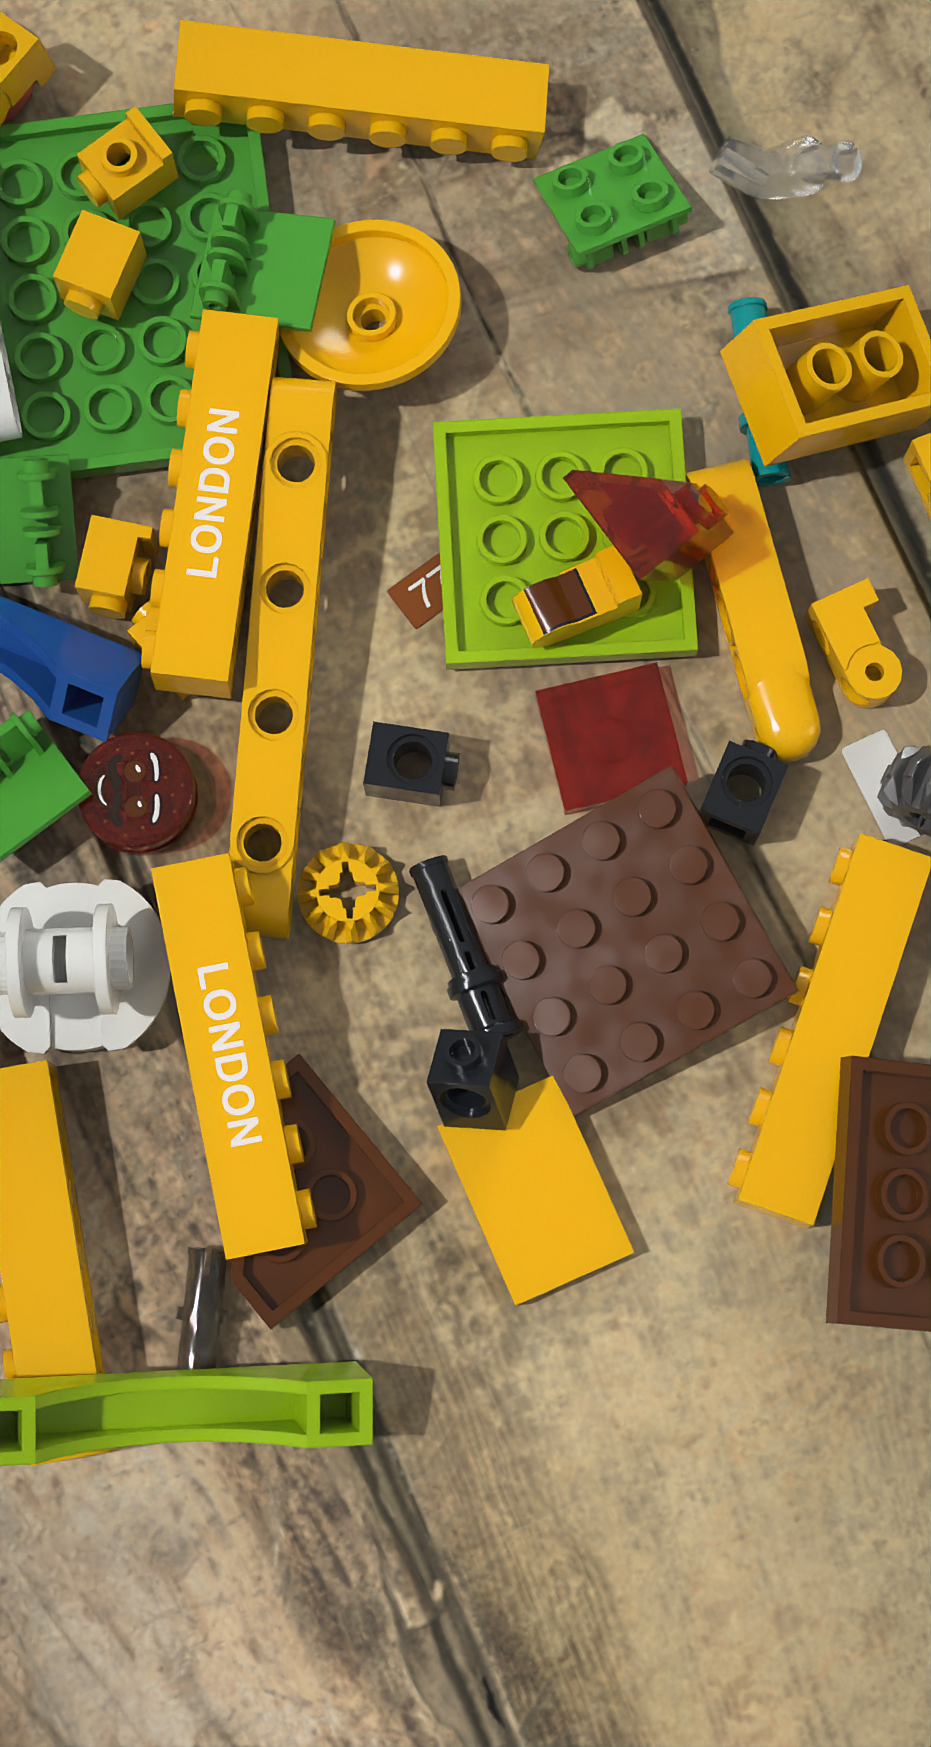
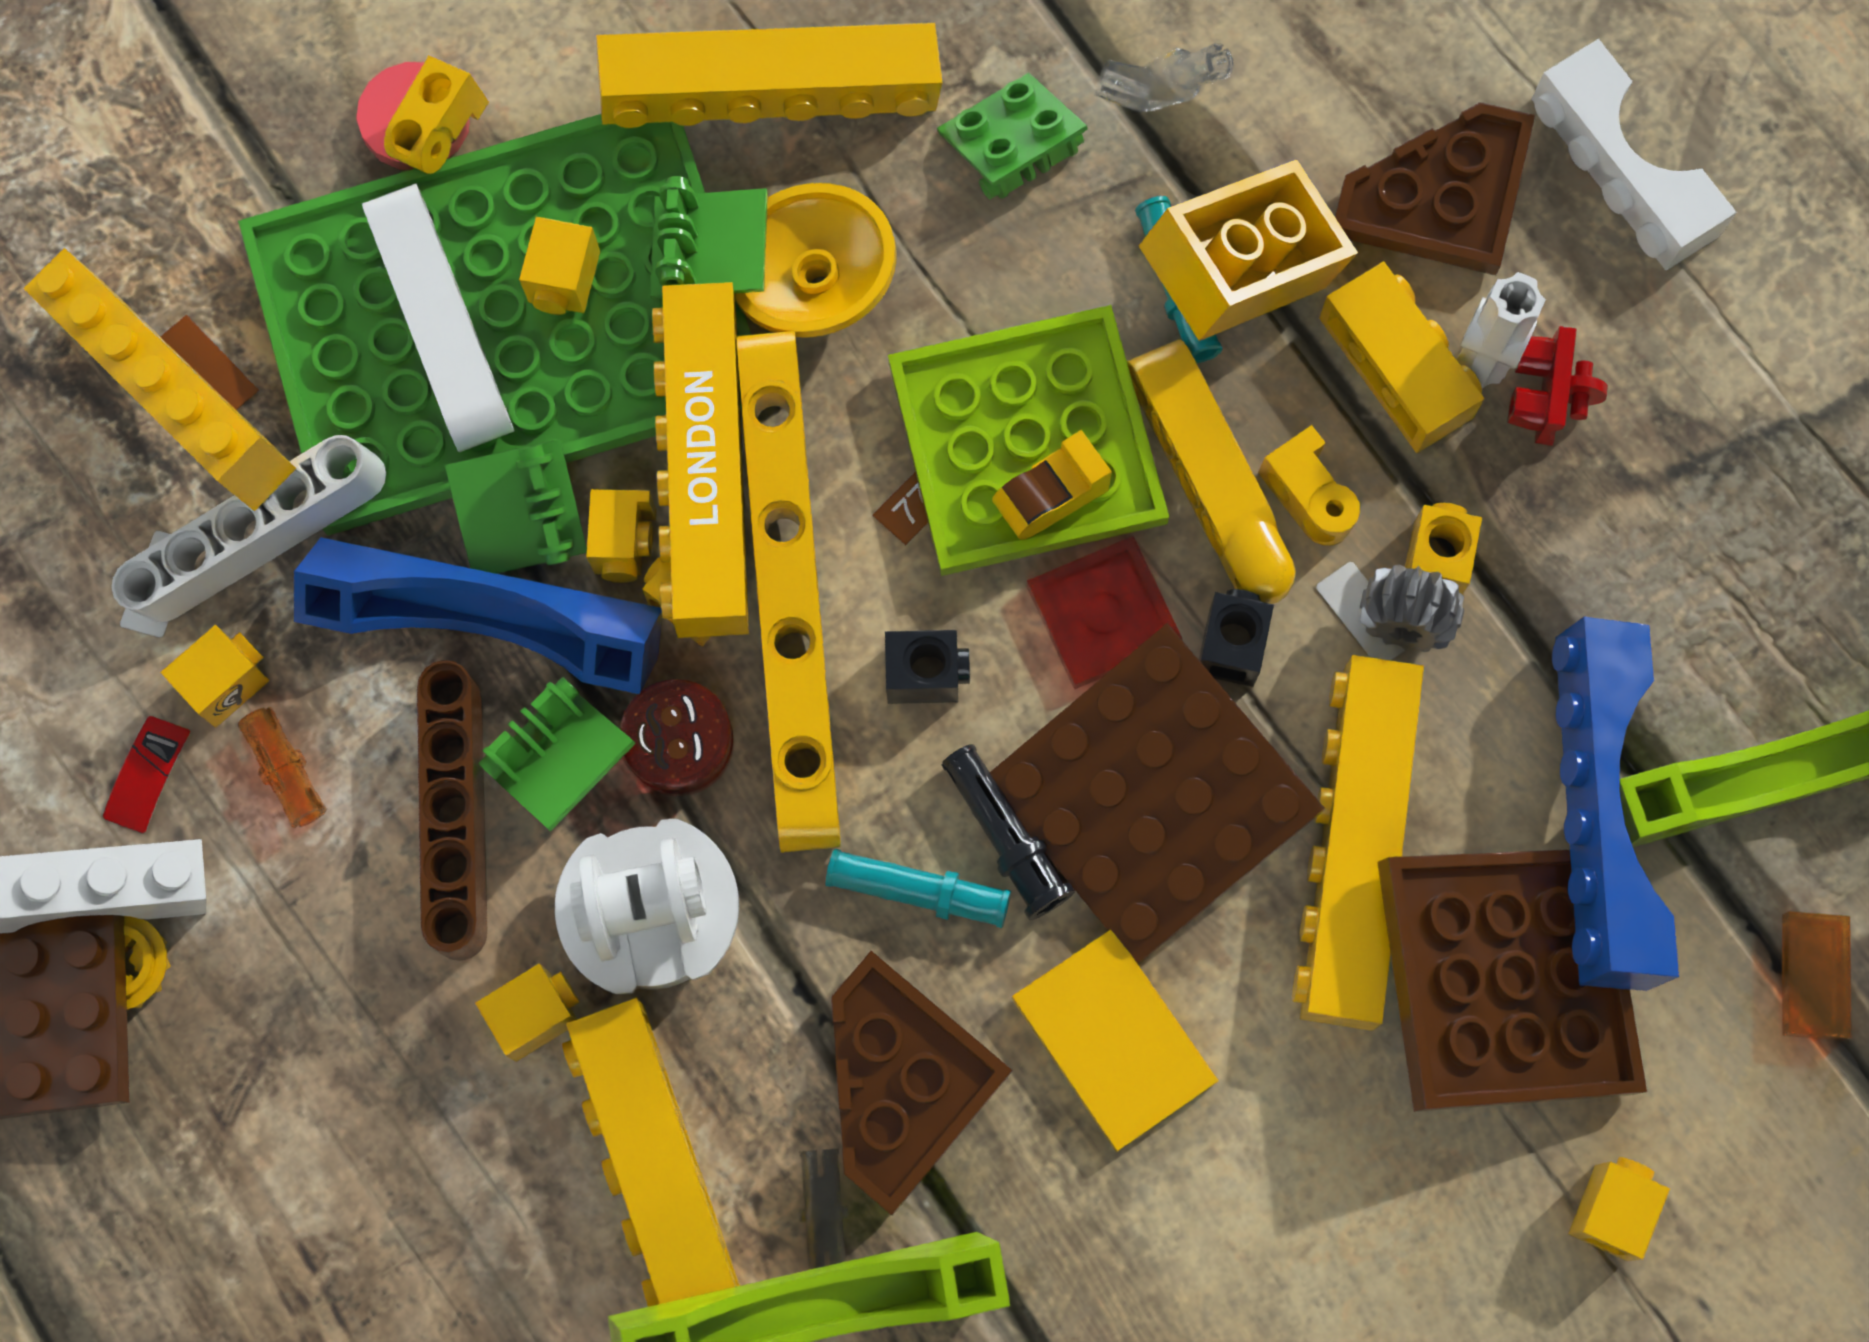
camera: 10 degrees left, 5 degrees down
(138, 180) = (577, 188): yellow brick -> none
(231, 1056) = (809, 962): yellow brick -> none
(358, 995) = (918, 888): none -> teal pin
(371, 911) = (873, 818): yellow gear -> none
(473, 1079) = (1039, 944): black brick -> none
(654, 522) = (1110, 401): clear red slope -> none

